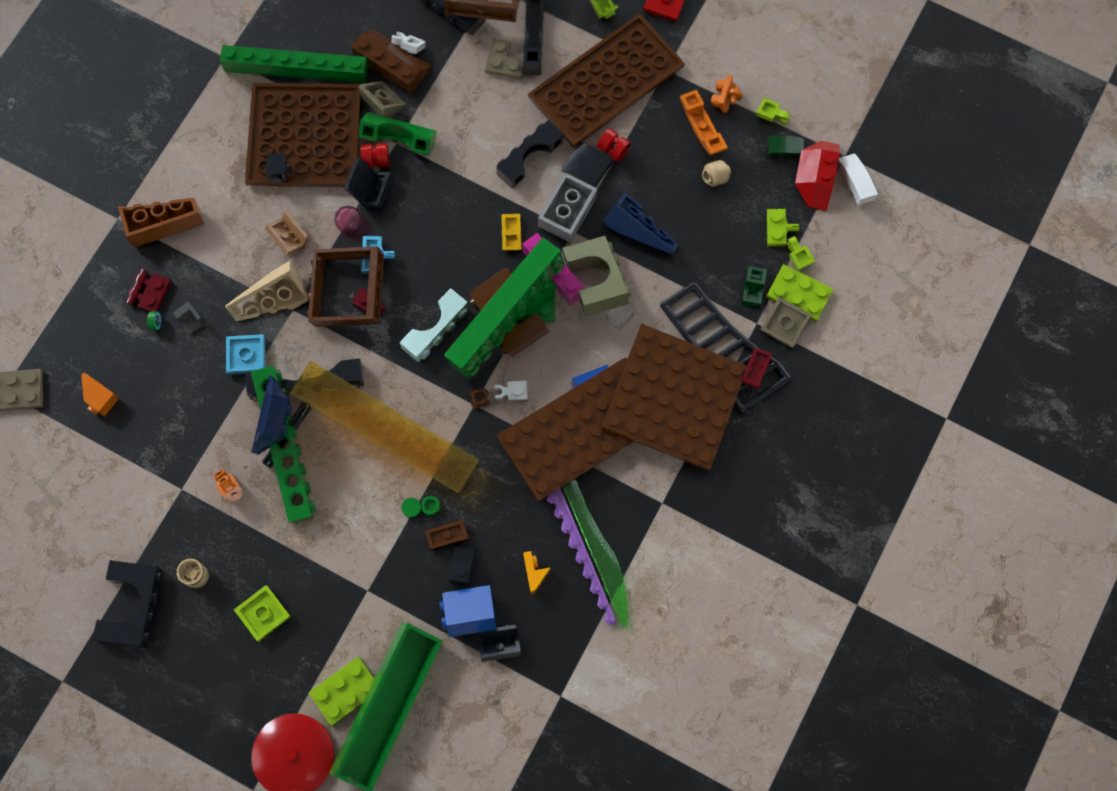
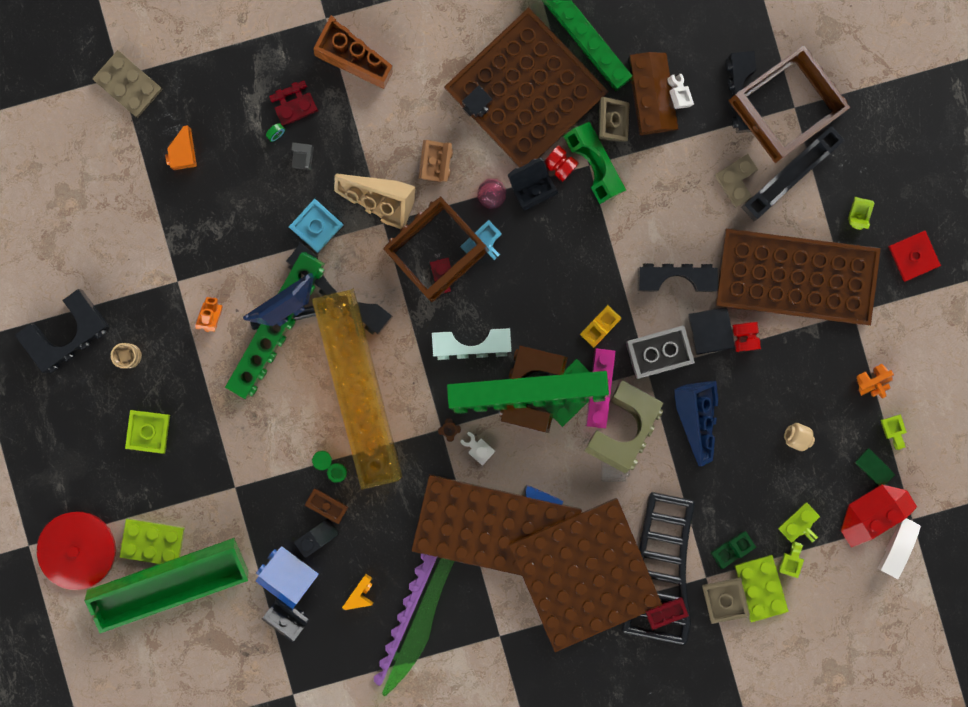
camera: 50 degrees right, 15 degrees up
(701, 123) = (831, 387): orange slope -> none

